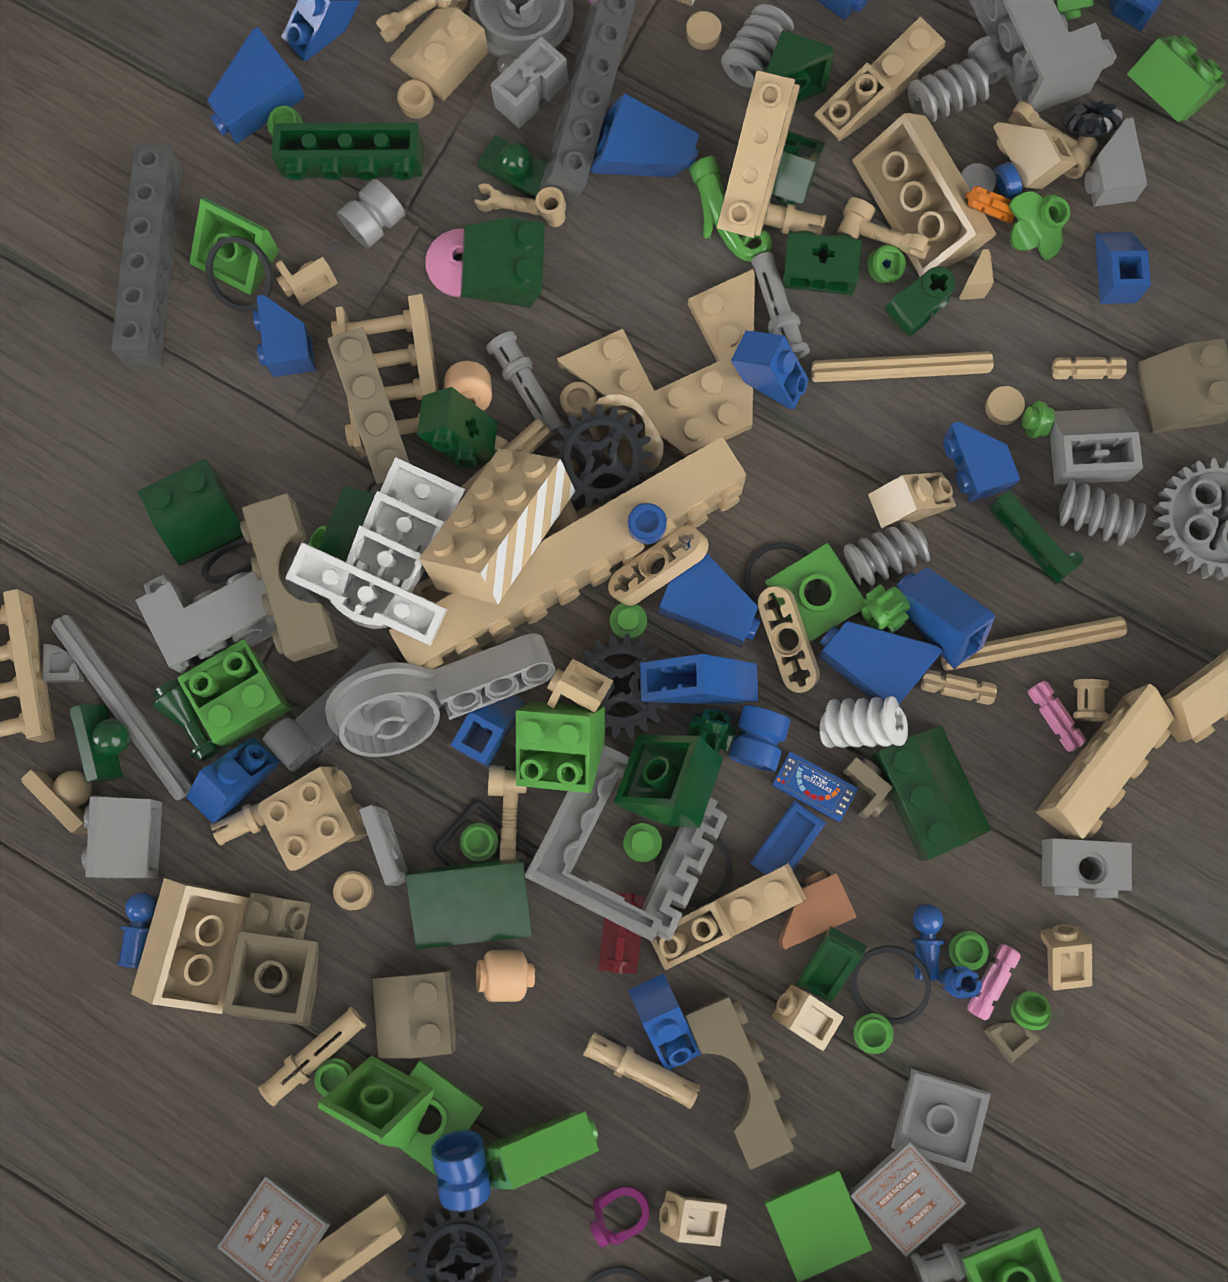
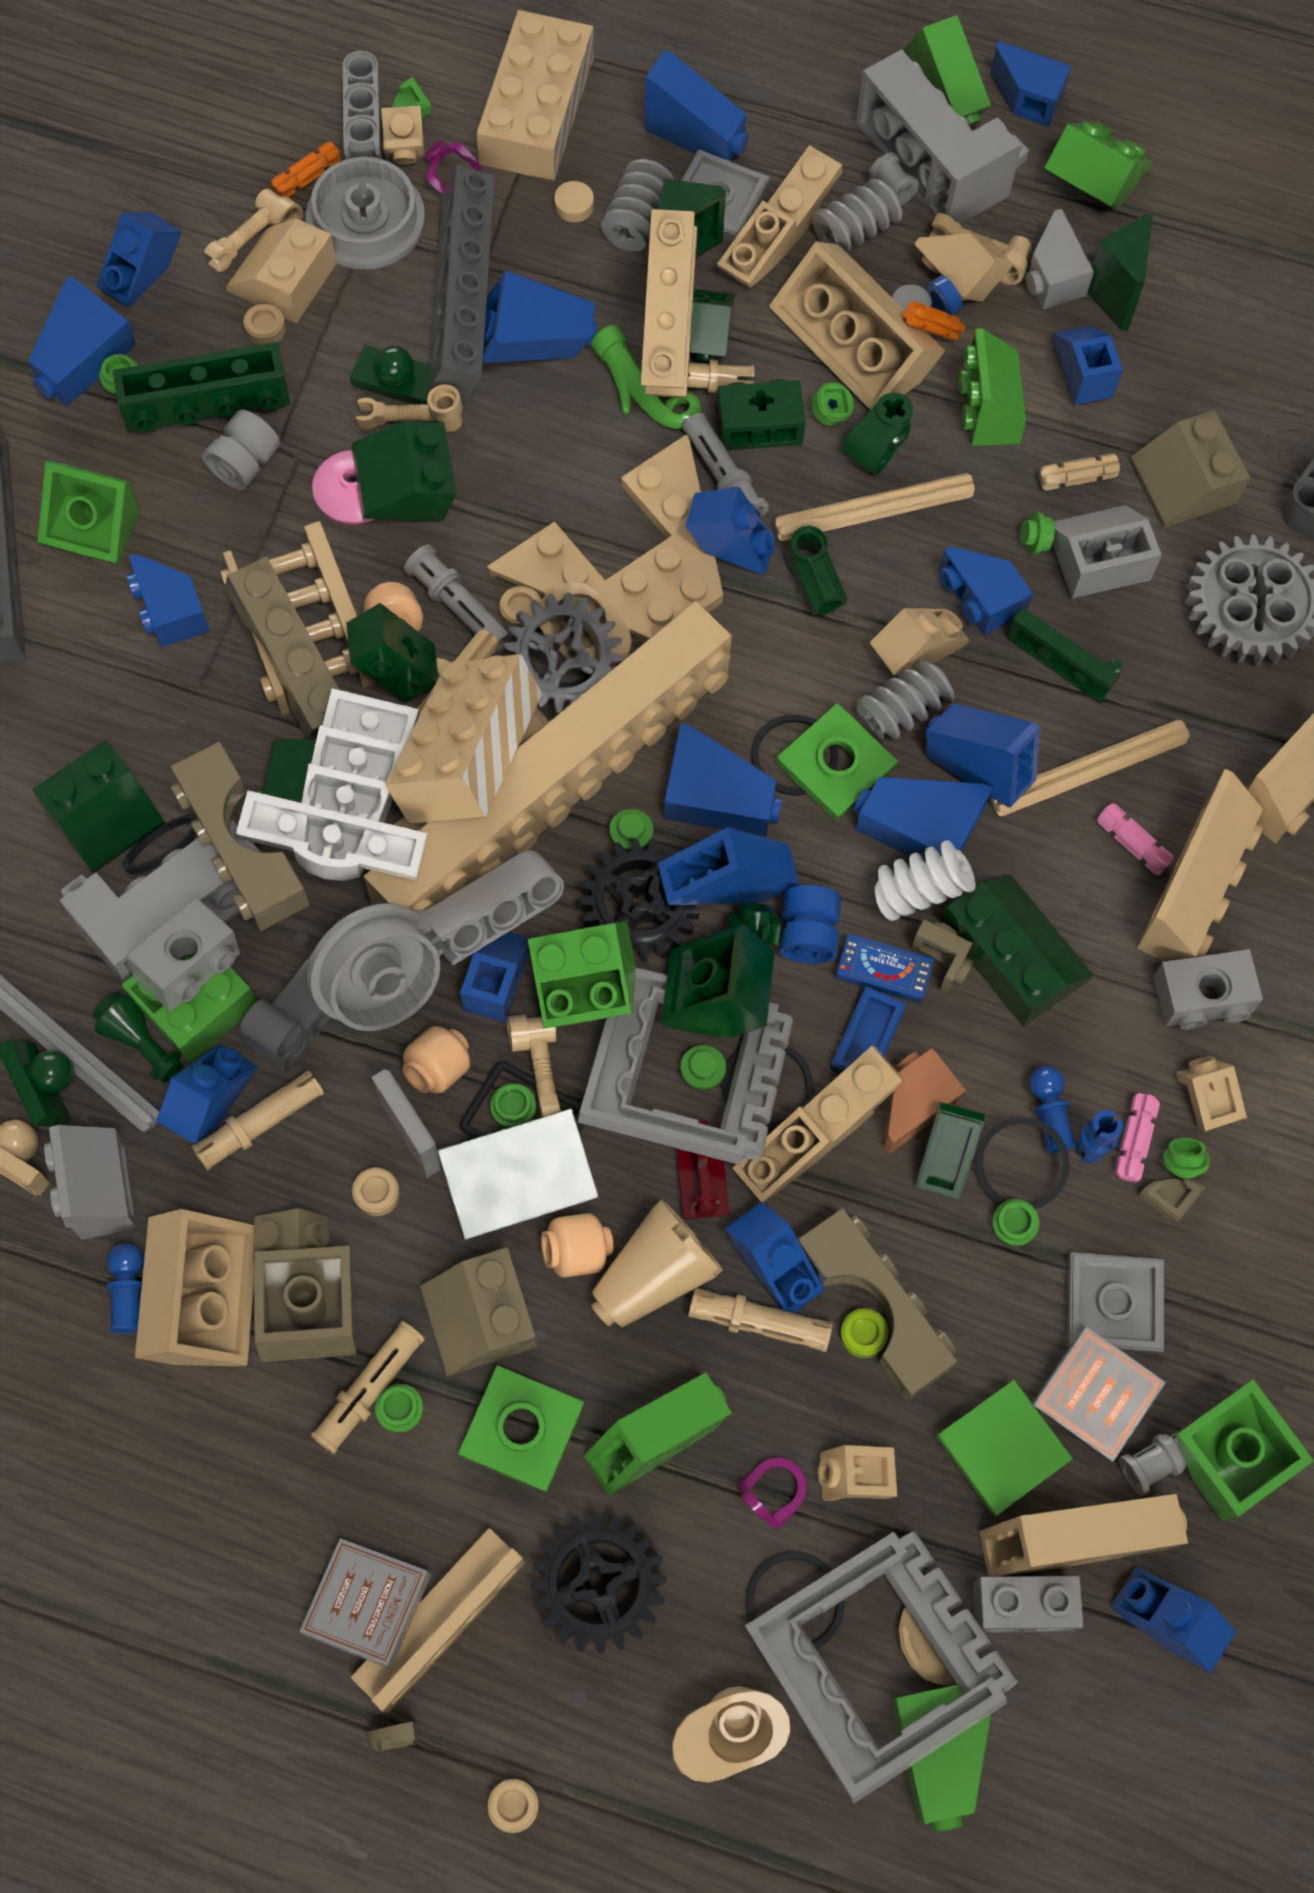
camera: 20 degrees left, 10 degrees down
(206, 667) = (192, 932): none -> light grey brick
(210, 275) = (65, 542): black piece -> none
(308, 282) = (182, 536): tan bracket -> none
(312, 816) = (312, 1112): tan bracket -> none
(379, 1103) = (462, 1417): bright green slope -> none
(423, 791) = (436, 1060): none -> light nougat head
(461, 1170) = (573, 1465): blue wheel -> none
(527, 79) = (387, 283): light grey piece -> none
(564, 1011) = (653, 1269): none -> tan cone
(579, 684) = (596, 896): tan bracket -> none
(647, 523) = (633, 705): blue tile -> none
(673, 567) = (624, 773): tan beam -> none
(725, 1099) = (864, 1333): none -> lime tile
(768, 616) = (791, 791): tan beam -> none
(807, 1016) = (936, 1218): tan bracket -> none
(836, 421) = (815, 572): none -> dark green piece
(848, 39) = (742, 187): none -> light grey tile
(857, 222) = (790, 365): tan brick -> none
(885, 608) = (918, 756): bright green gear -> none
(959, 687) = (1019, 829): tan axle -> none
(968, 950) = (1096, 1101): bright green plate -> none
(980, 278) = (938, 400): tan slope -> none
(1004, 405) = (997, 526): tan tile -> none
(1030, 280) = (992, 391): none -> bright green slope
(1034, 224) = (997, 318): bright green plate -> none
(1090, 700) = (1168, 813): tan bush -> none
(1092, 118) = (1019, 219): black gear -> none
(1101, 512) = (1129, 615): light grey piece -> none
(1173, 188) = (1121, 270): none -> dark green slope

